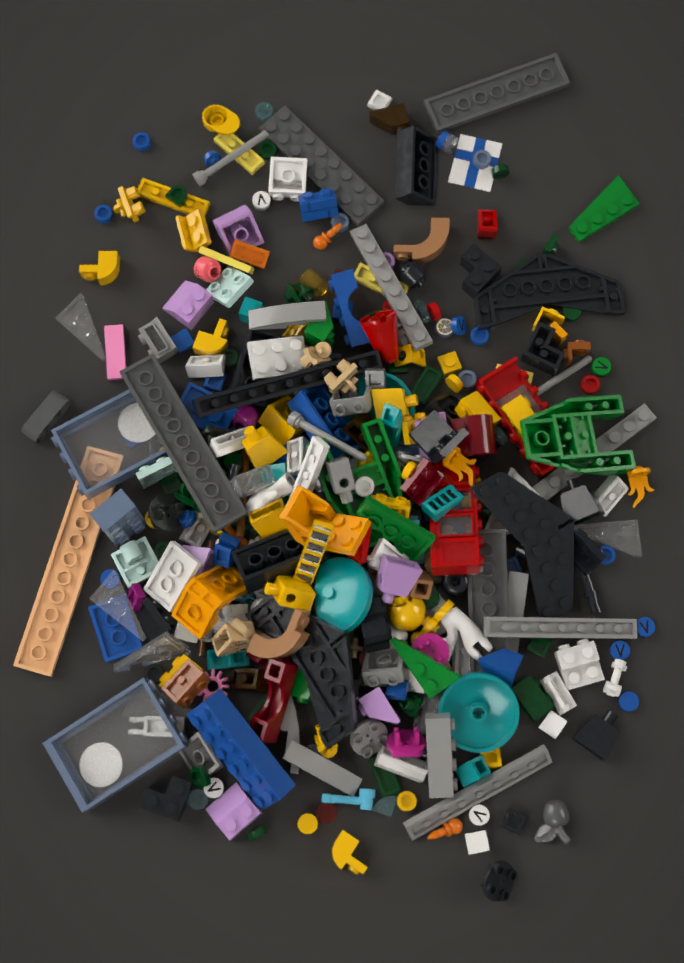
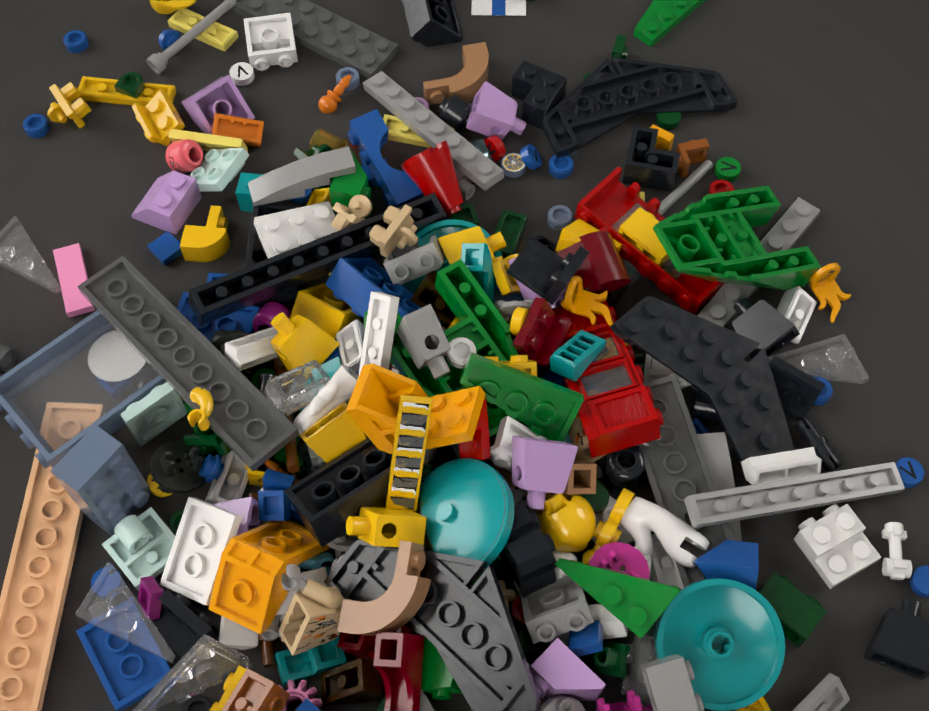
camera: 15 degrees left, 15 degrees down
(105, 271) = (45, 185): yellow brick -> none
(157, 340) = (131, 245): light grey window -> none
(170, 483) = (177, 428): dark green tile -> none
(191, 480) = (205, 401): none -> yellow arm
(206, 366) = (203, 269): white slope -> none
(231, 357) = (234, 255): dark green tile -> none
(267, 150) = (236, 21): dark green tile -> none
(296, 420) = (342, 299): light grey piece -> none
(318, 205) = (315, 60): blue brick -> none
(375, 378) = (440, 223): tile -> none
(412, 356) = (480, 198): yellow bracket -> none
(440, 283) = (494, 113): none -> lavender torso
(449, 363) = (531, 203): yellow plate -> none
(454, 383) = (545, 222): yellow tile -> none
(487, 224) = (534, 45): red slope -> none
(539, 646) = (769, 532): dark green tile -> none
(549, 314) = (643, 120): yellow bracket -> none
(552, 724) = (830, 640): white slope -> none
(557, 607) = (781, 466): none -> white piece
(559, 693) = (814, 583): white hinge -> none
(619, 650) = (885, 511): blue tile -> none

